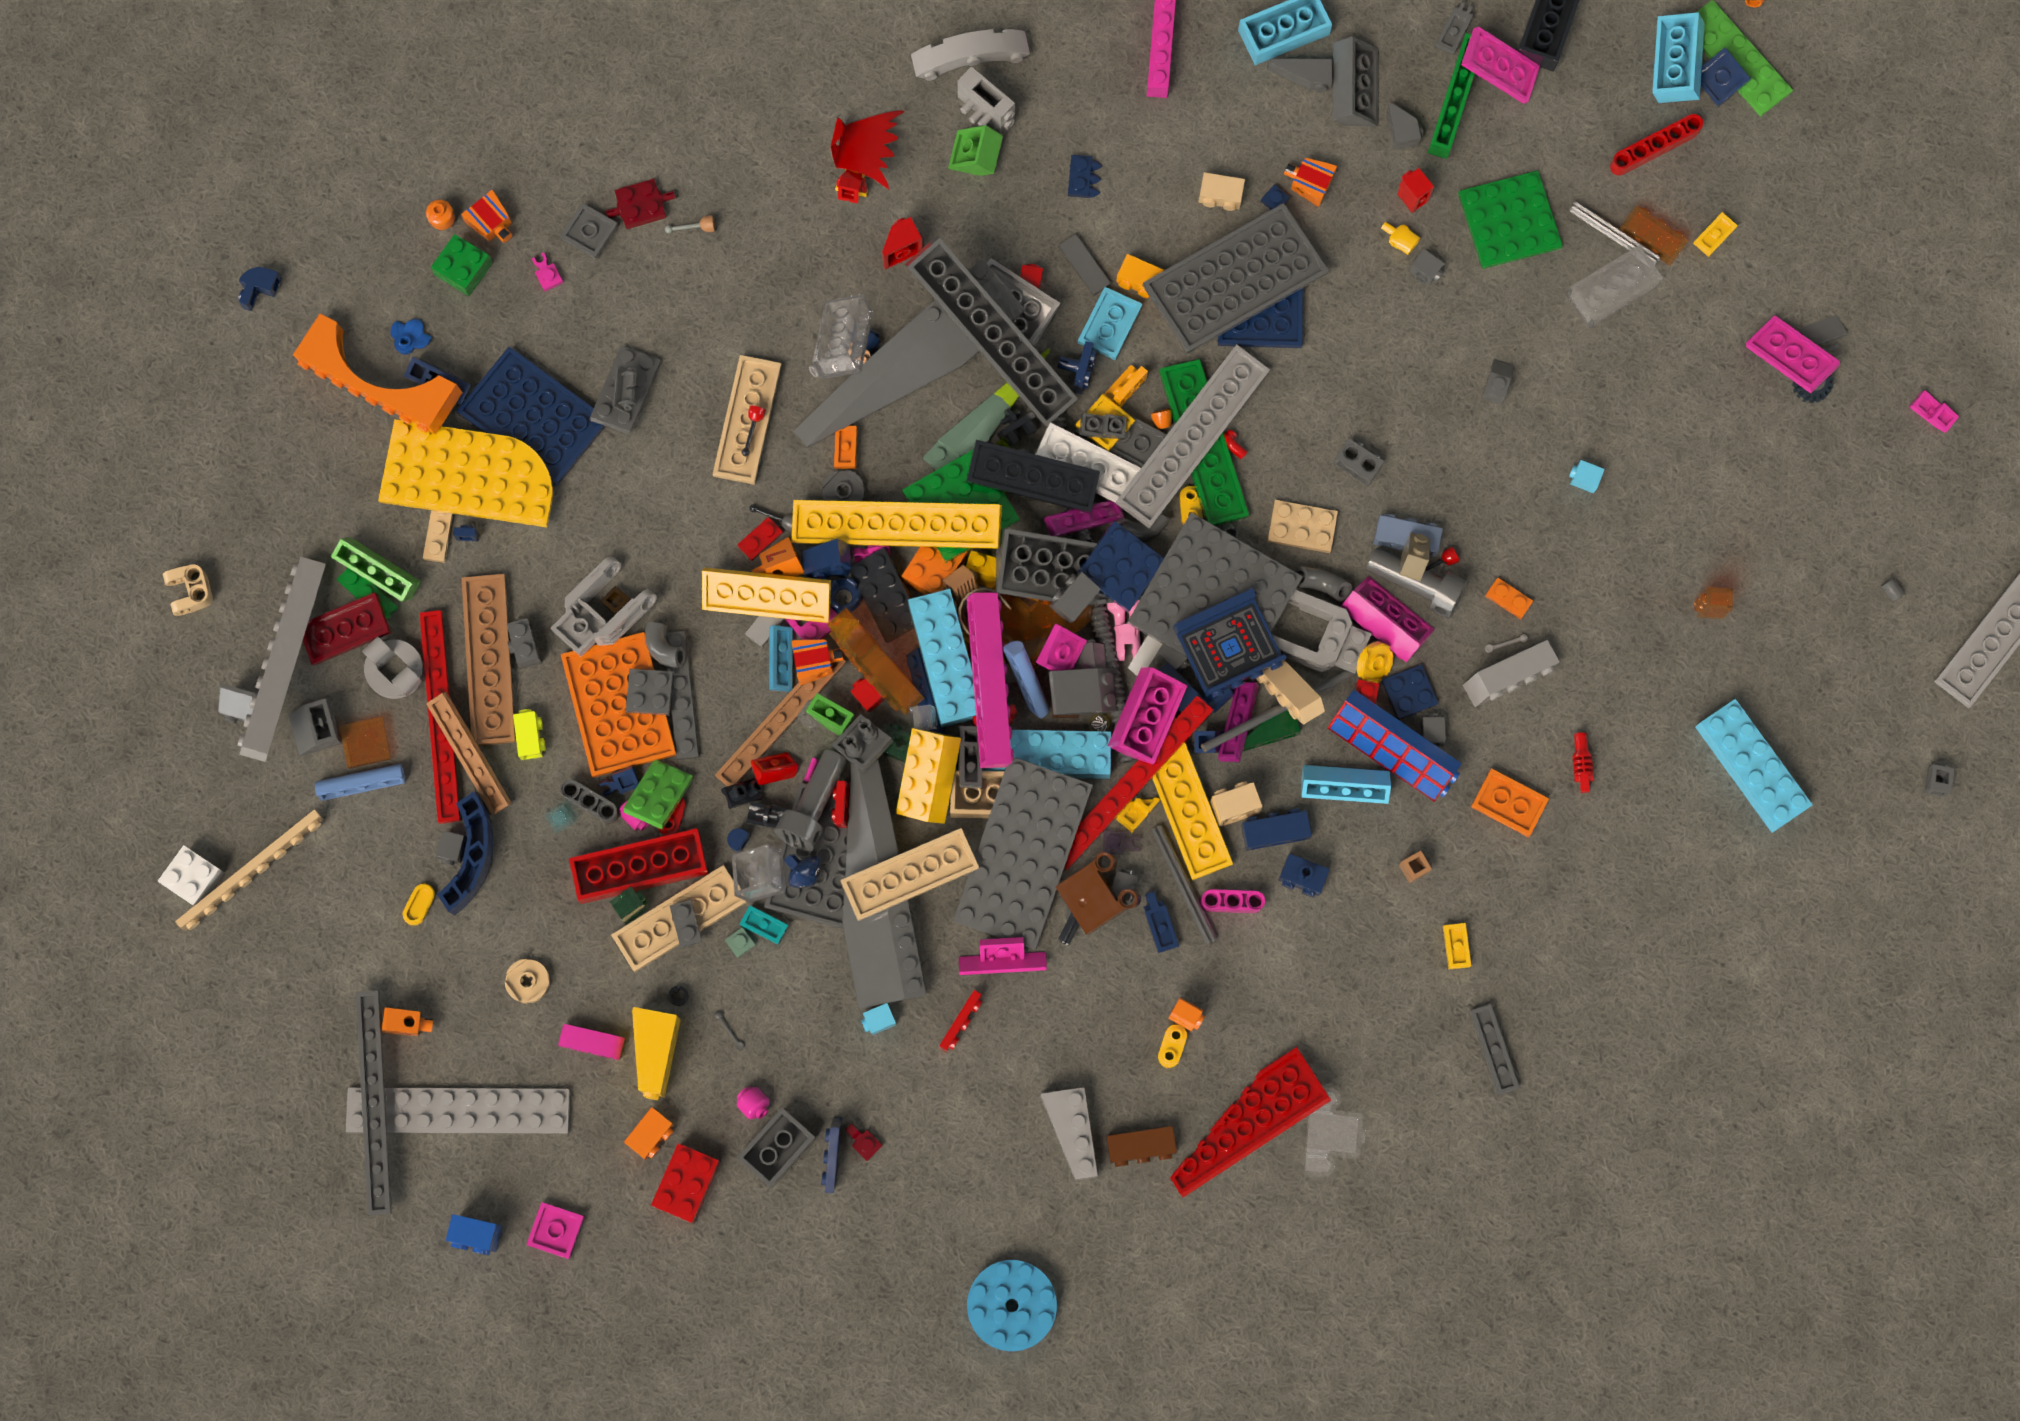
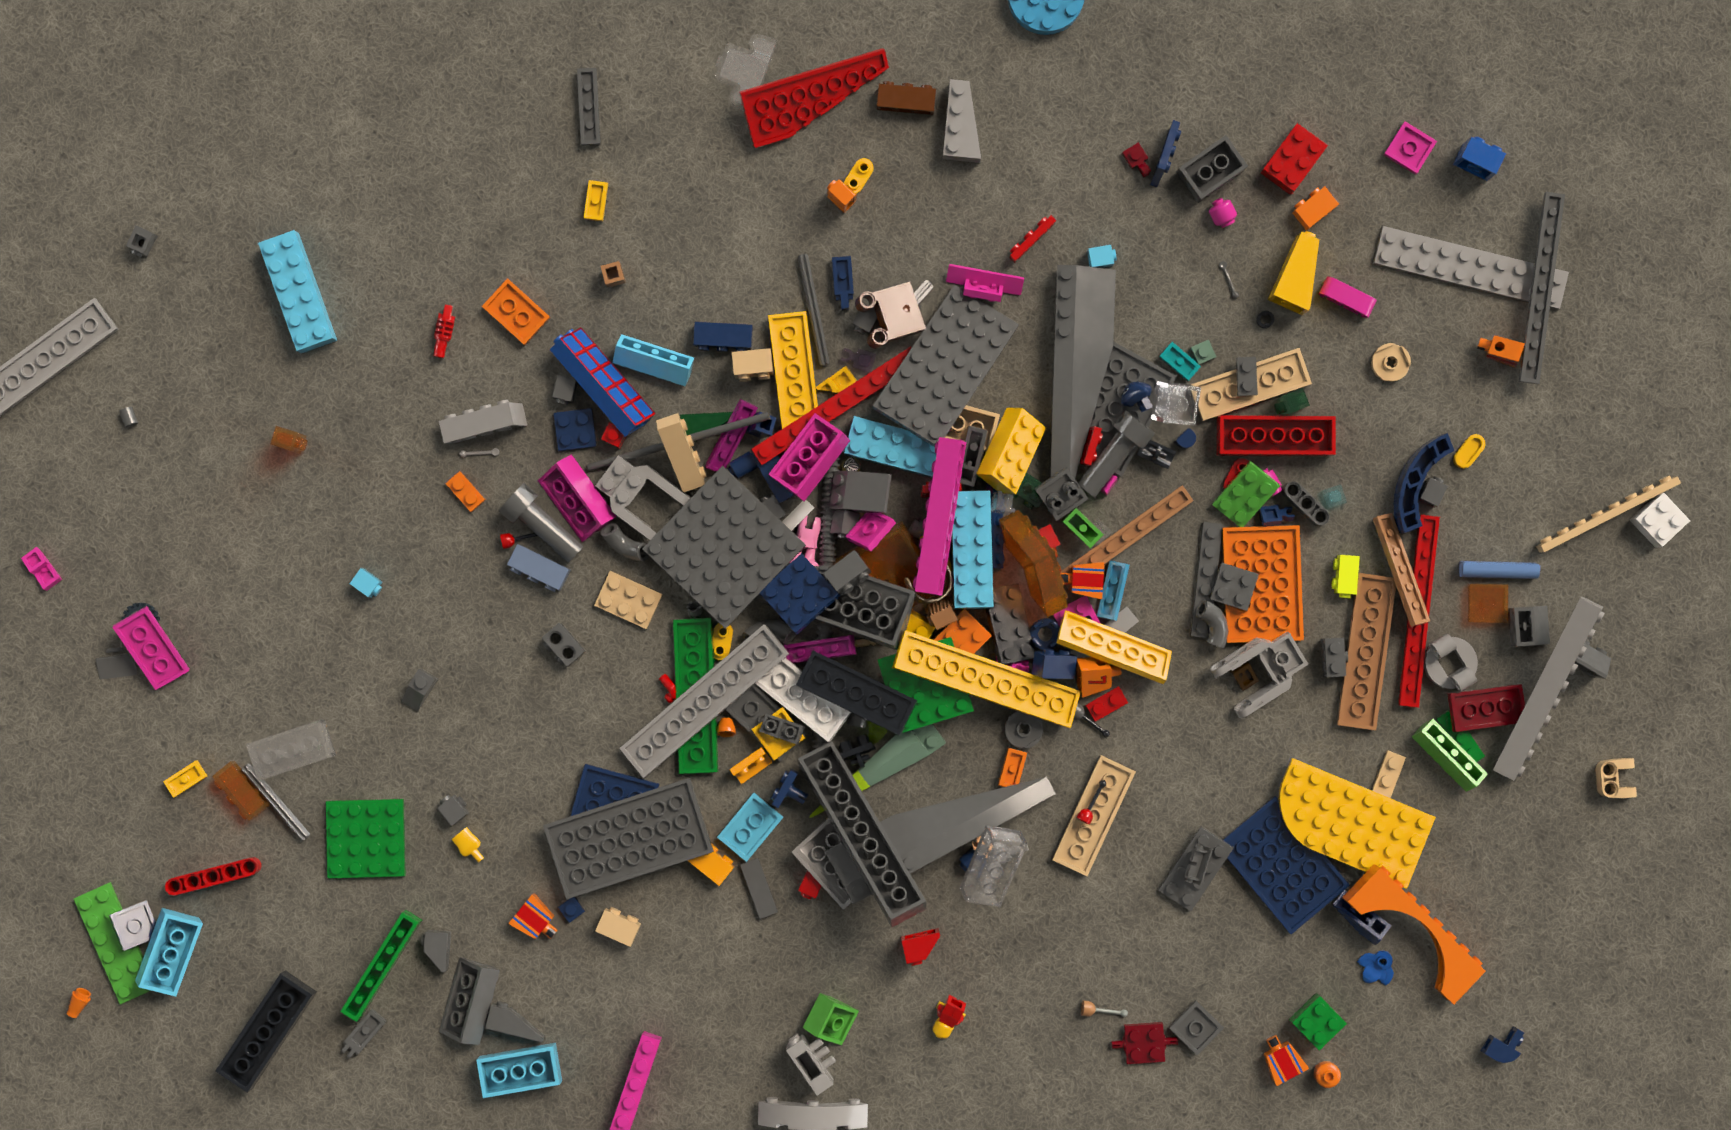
camera: 165 degrees left, 10 degrees up
(466, 533) = (1363, 770): dark blue plate -> none
(548, 274) = (1242, 995): dark pink plate -> none
(742, 793) = (1173, 478): black hips -> none
(774, 768) = (1141, 494): red slope -> none
(863, 145) = (931, 1048): red piece -> none
(909, 874) = (1048, 366): tan plate -> none
(1026, 678) = (905, 514): medium blue brick -> none
(1081, 177) = (739, 973): dark blue plate -> none
(1229, 644) = (722, 501): panel -> none
(1243, 899) = (769, 277): dark pink beam -> none
(1303, 875) = (709, 291): dark blue brick -> none
(1374, 662) = (599, 460): yellow tile -> none
(1415, 189) = (444, 884): red brick -> none
(1415, 556) = (539, 541): dark tan brick -> none
(1500, 65) = (333, 983): dark pink plate -> none

